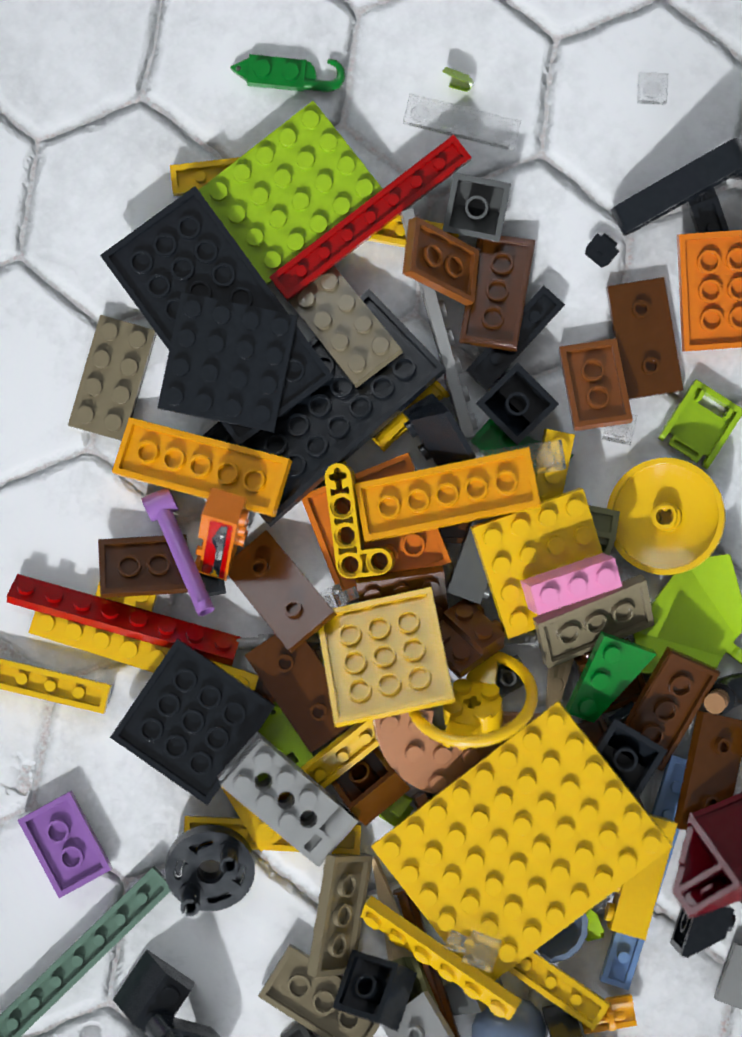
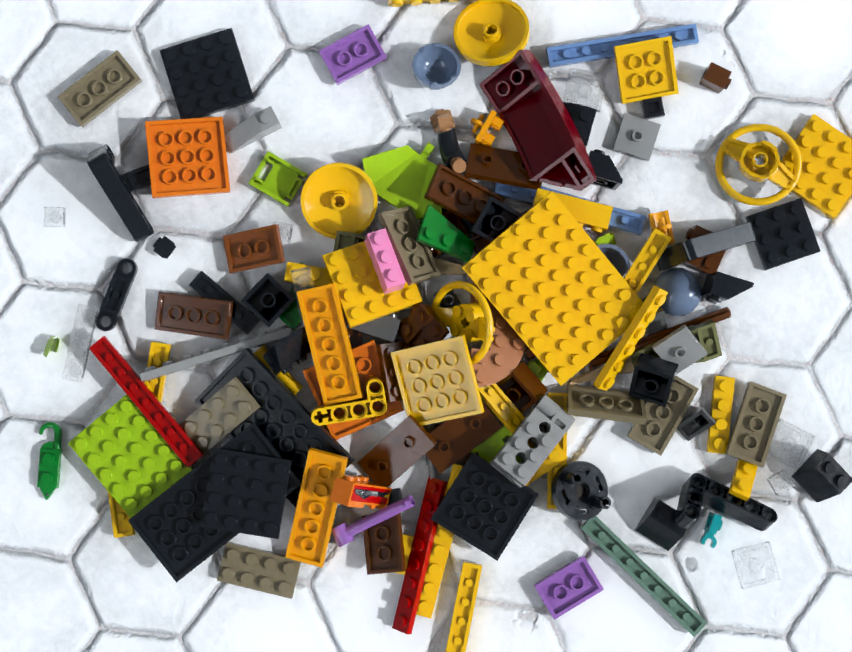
camera: 90 degrees left, 0 degrees up
(336, 597) = (399, 414): clear plate -> none
(441, 261) = (174, 353): dark orange plate -> none
(476, 207) = (137, 331): dark grey slope -> none
(479, 949) = (623, 313): clear plate -> none
(532, 177) = (116, 295): none -> black plate
(645, 337) = (222, 217): reddish brown plate -> none

